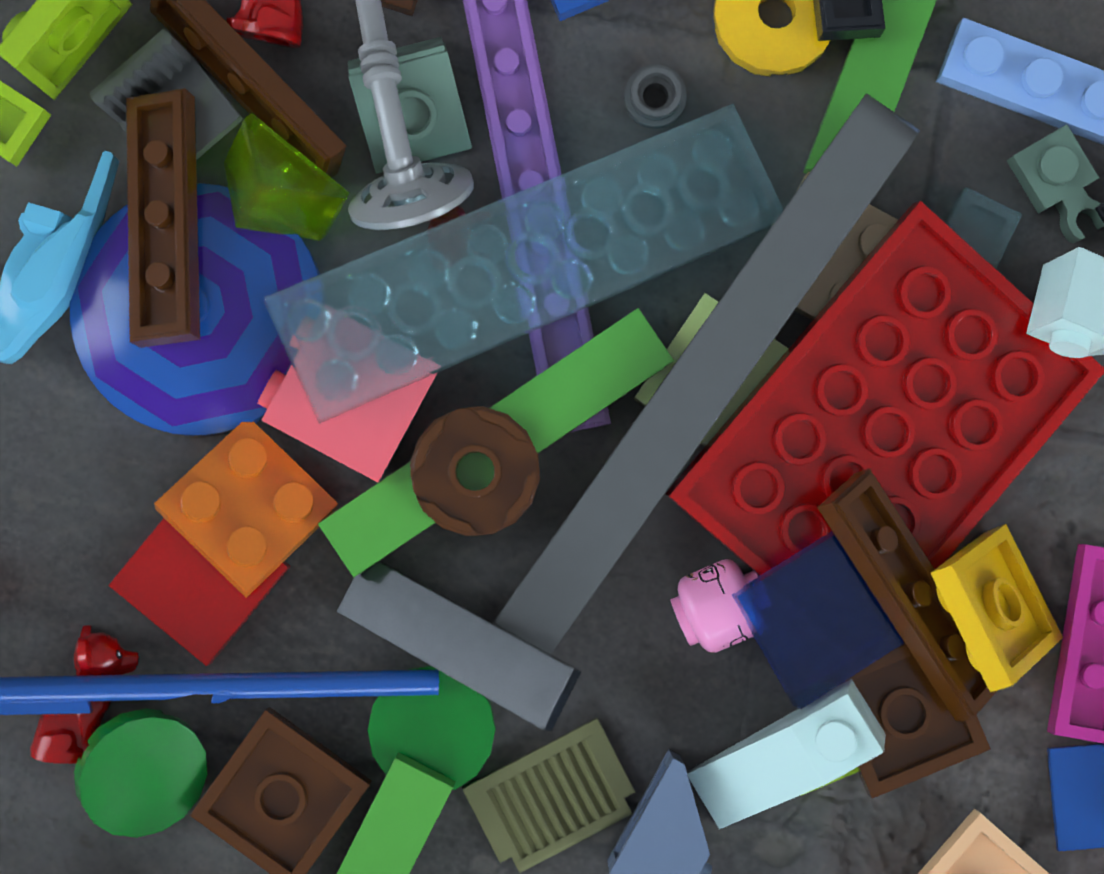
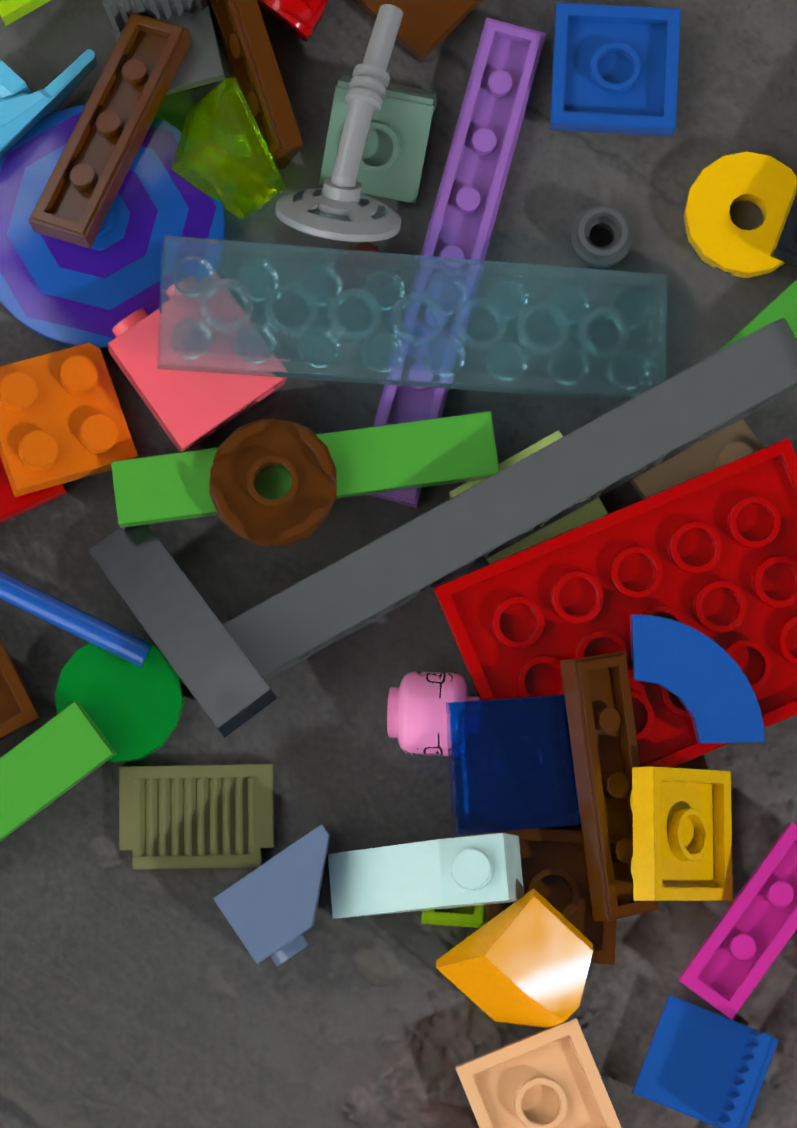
camera: 30 degrees right, 5 degrees down
(912, 791) = (522, 964): none -> light orange slope
(943, 456) = (699, 675): none -> blue tile

